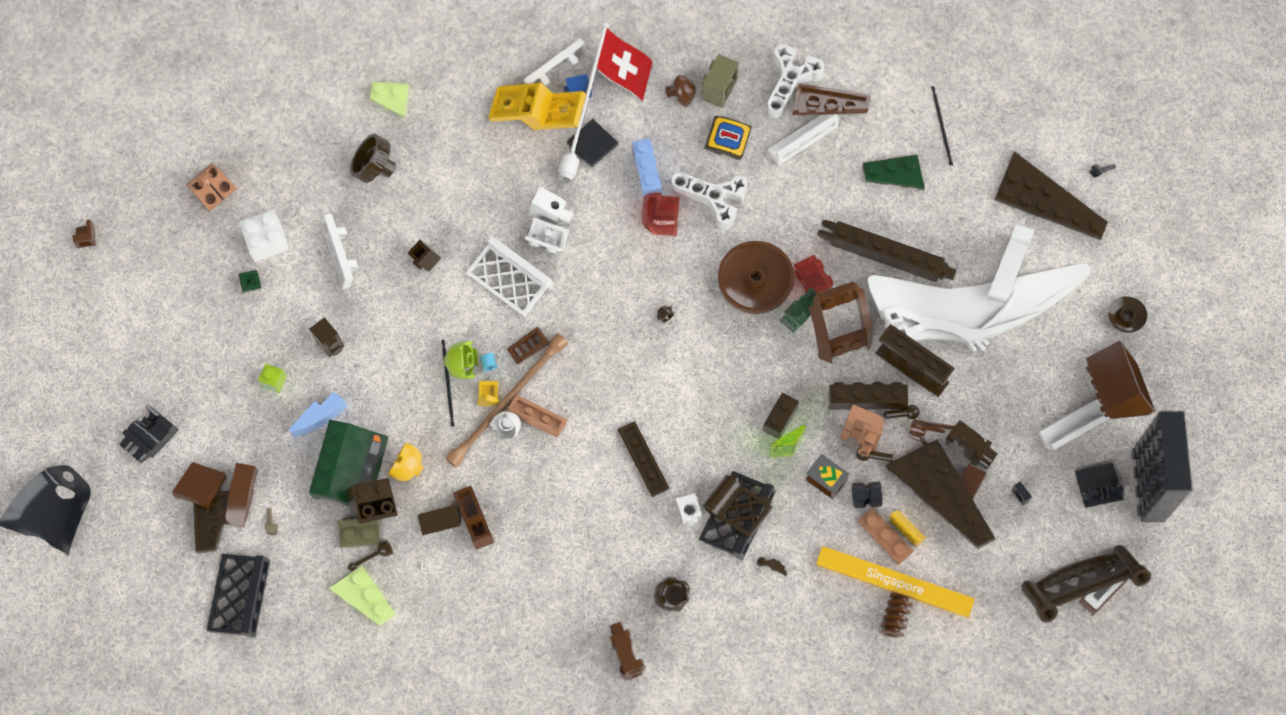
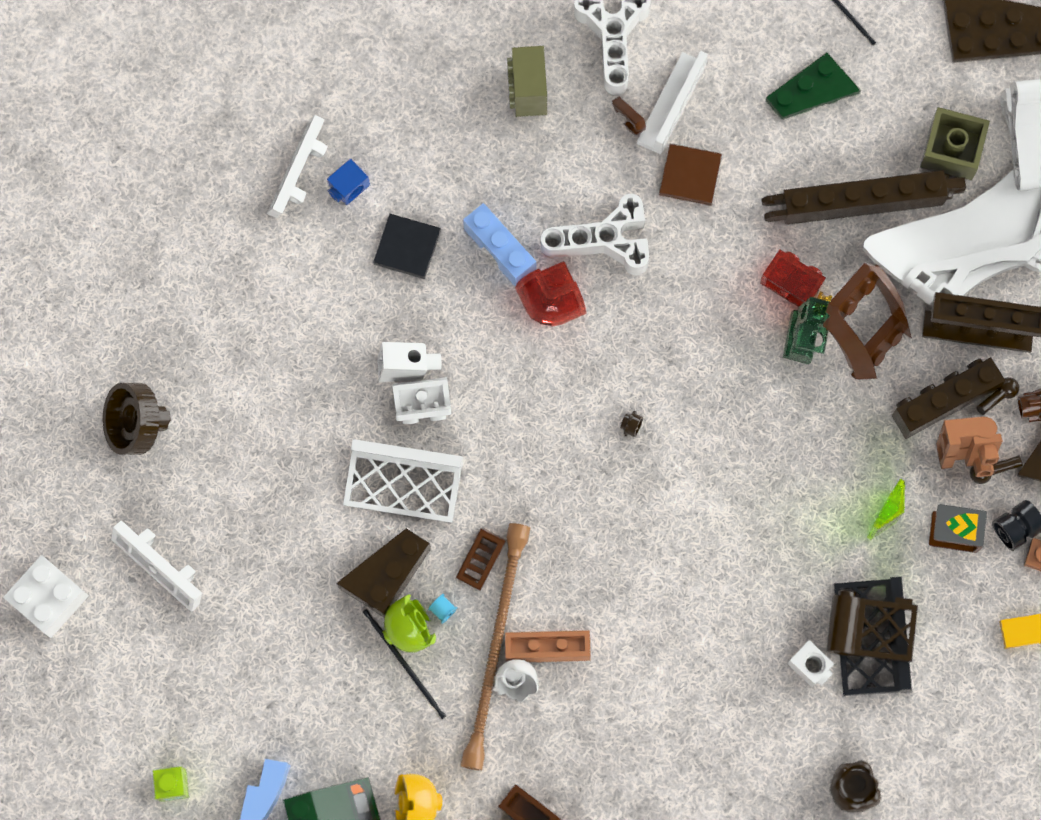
camera: 30 degrees left, 5 degrees up
(249, 281) = (61, 668): dark green tile -> none
(327, 337) = (214, 691): dark brown brick -> none
(391, 96) = (104, 319): yellowish green wing -> none
(423, 256) = (277, 512): dark brown brick -> none
(468, 322) = (386, 572): none -> dark brown wedge
(488, 393) = (466, 650): yellow tile -> none
(537, 106) = (311, 235): yellow bracket -> none
(620, 65) = (391, 125): flag -> none
(643, 459) = (713, 628): dark brown tile -> none
(683, 89) = (484, 115): reddish brown piece -> none
(728, 137) = (577, 150): slope -> none
(756, 277) = (721, 316): reddish brown dish -> none
(771, 138) = (635, 123): none -> reddish brown tile
(773, 564) = (954, 676): dark brown piece -> none
(780, 416) = (855, 480): dark brown brick -> none
(789, 185) = (690, 174): none -> reddish brown tile
(821, 100) = (674, 40): wing -> none
(963, 247) = (955, 143): none -> olive brick

